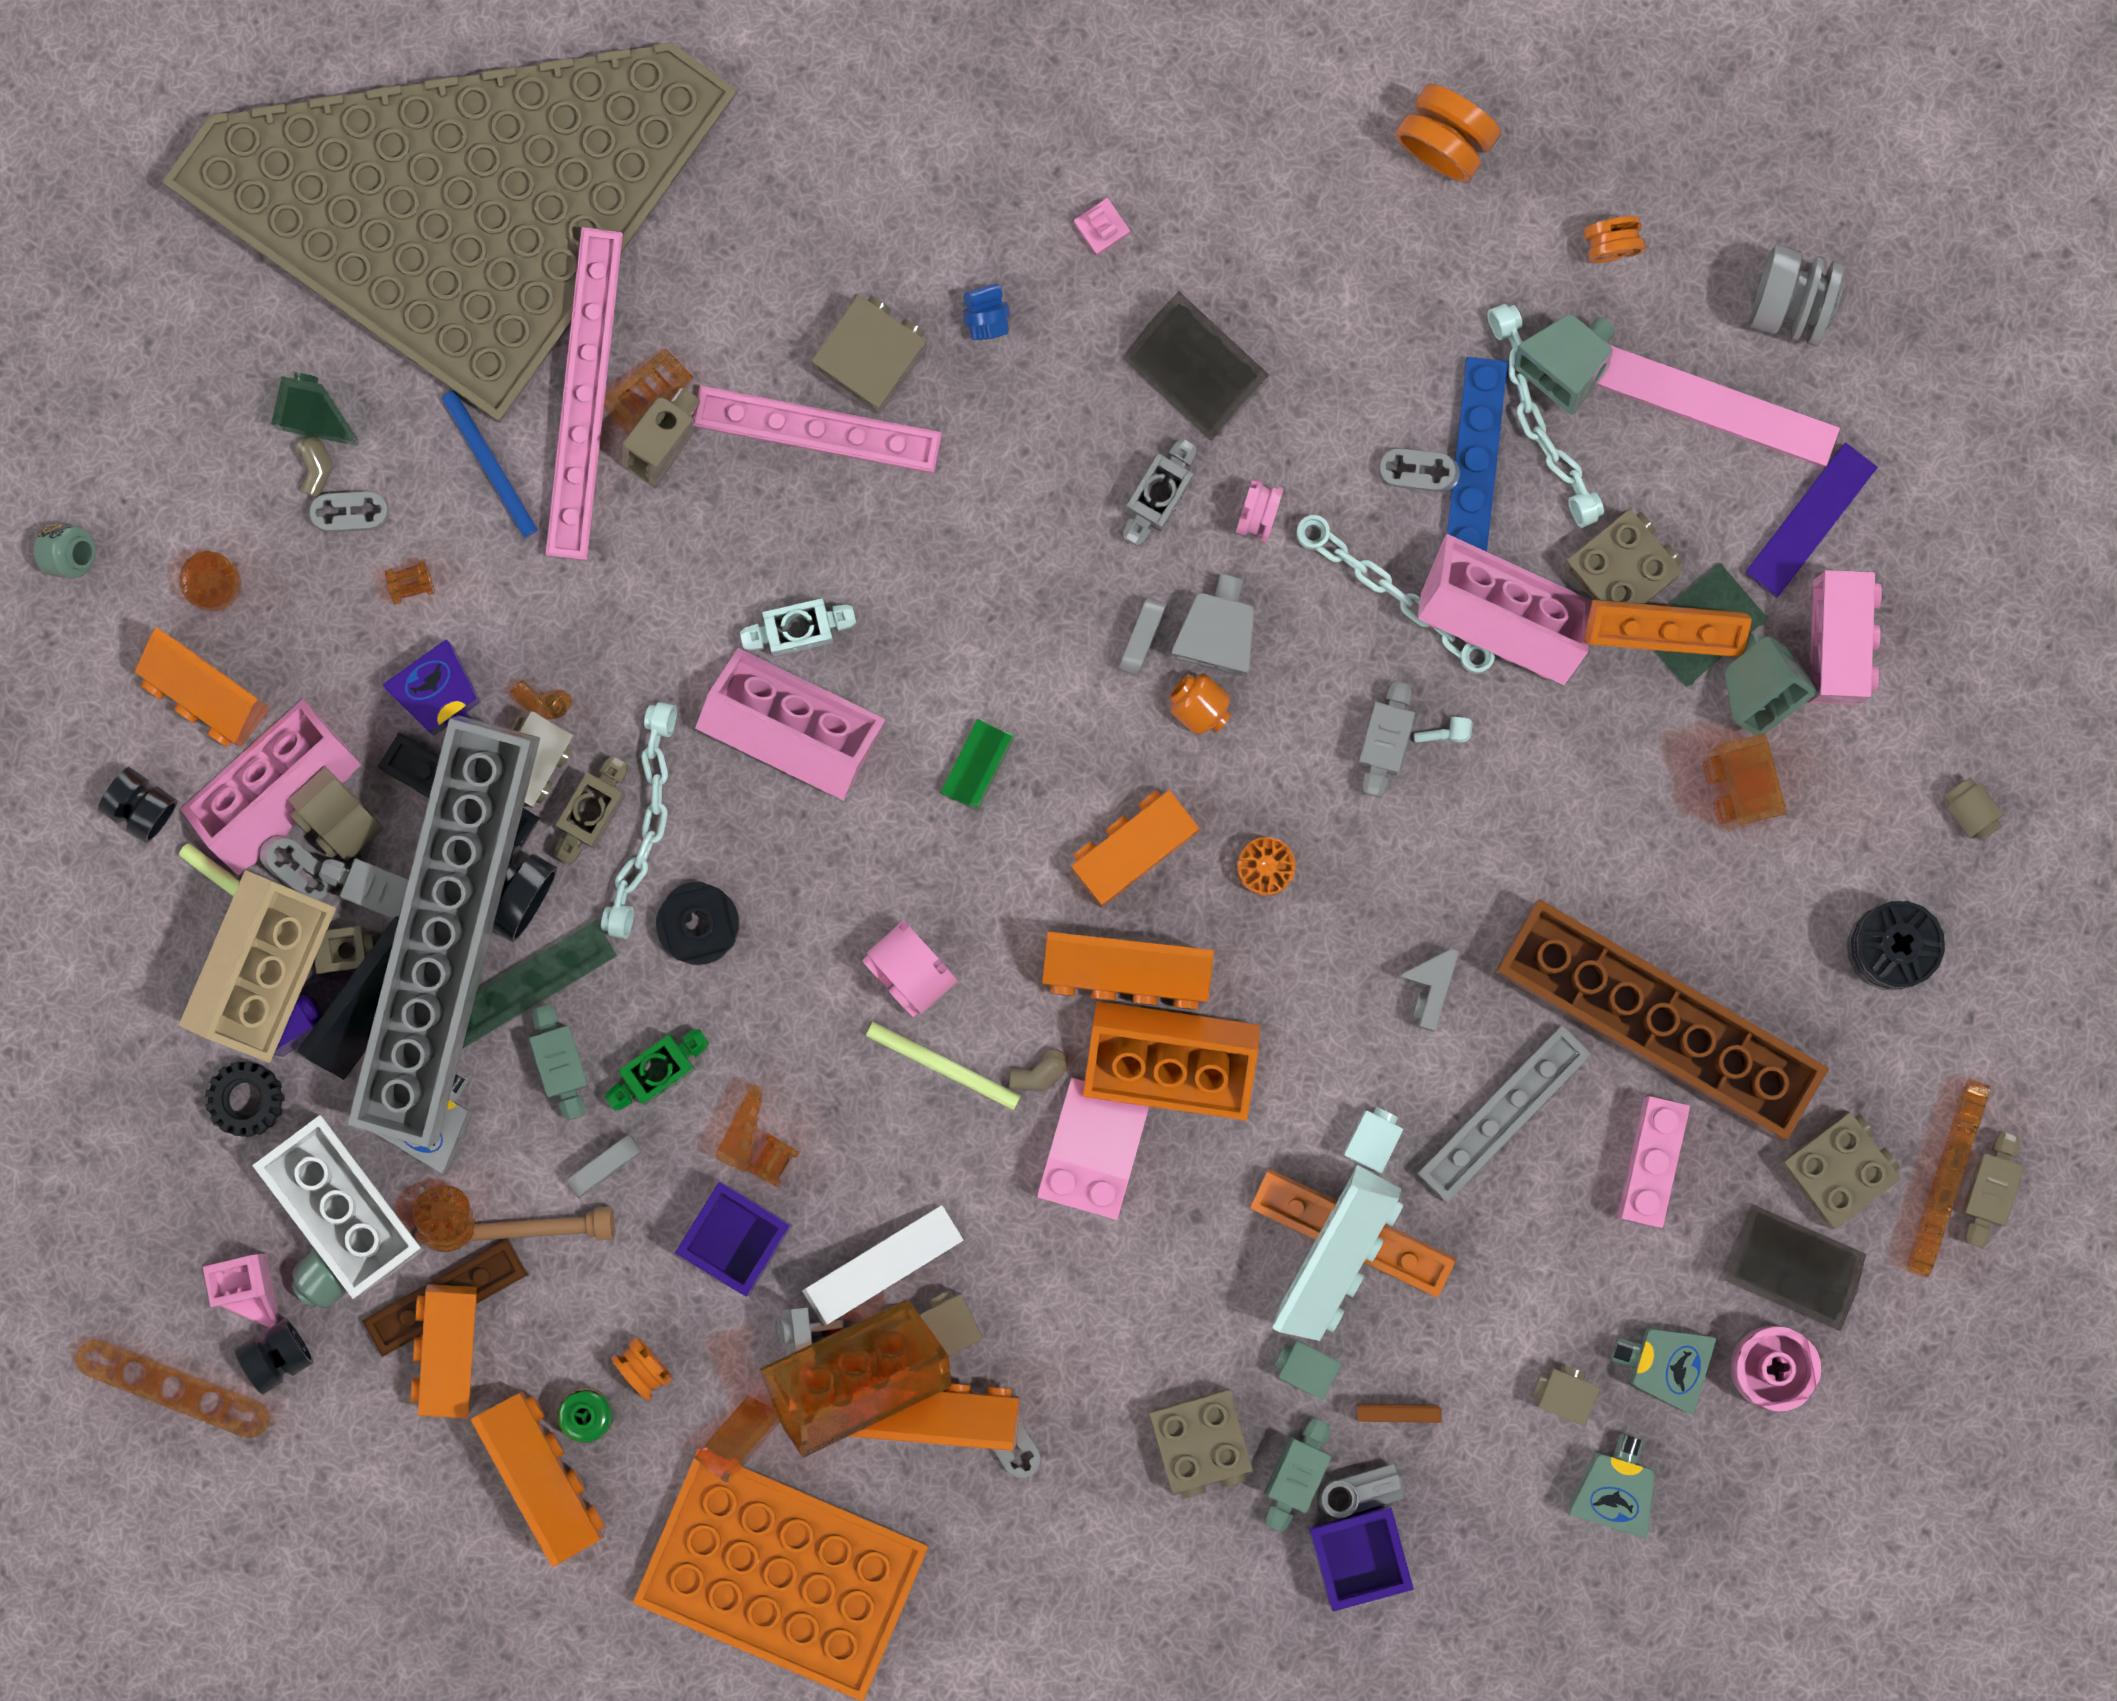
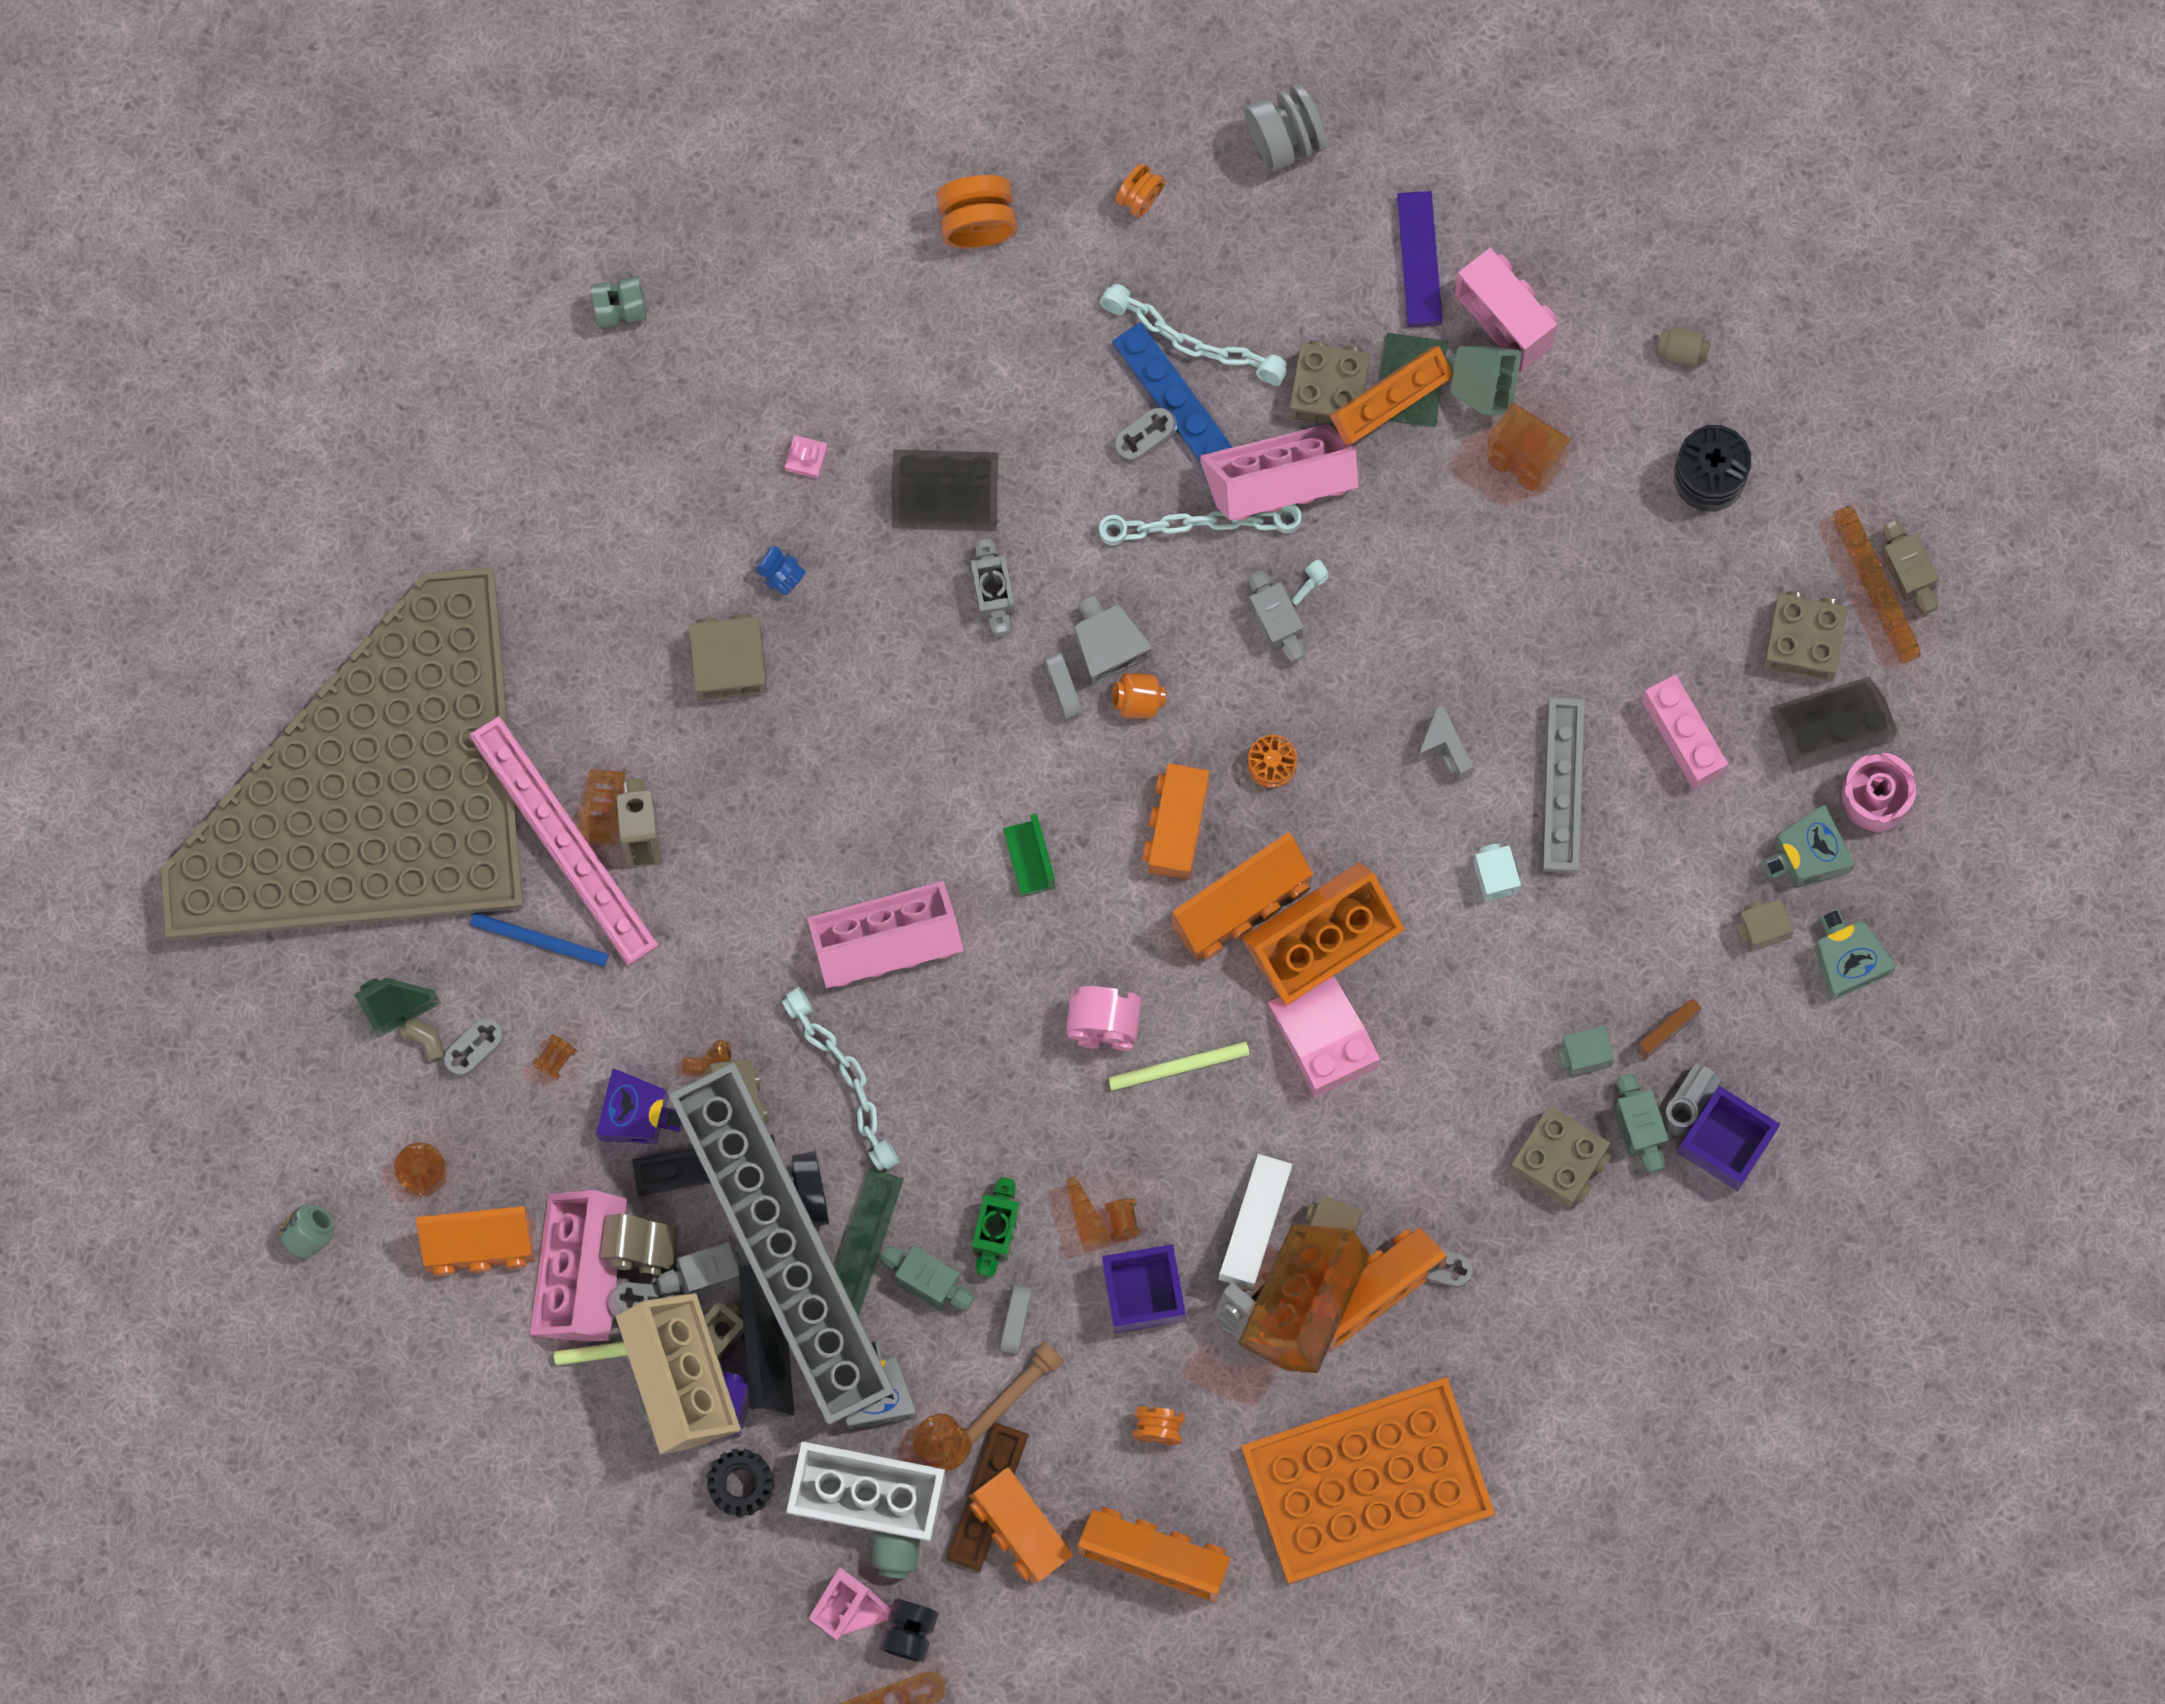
camera: 40 degrees left, 10 degrees down
(134, 802) = (513, 1354): black wheel -> none
(596, 1404) = (1148, 1501): green head -> none
(612, 772) = (800, 1076): dark tan piece -> none
(711, 904) = (934, 1092): black plate -> none
(738, 1438) = (1261, 1415): clear orange slope -> none
(755, 637) = (814, 898): light aqua piece -> none
(817, 429) = (736, 736): bright pink tile -> none
(1043, 1075) = (1248, 1018): dark tan arm -> none
(1259, 510) = (1064, 542): bright pink wheel -> none
(1308, 1211) = (1536, 941): orange plate -> none
(1337, 1256) = (1540, 958): light aqua slope -> none
(1567, 359) = (1177, 286): sand green torso -> none
(1661, 1020) = (1608, 640): dark orange brick -> none
(1719, 407) = (1296, 240): bright pink tile -> none

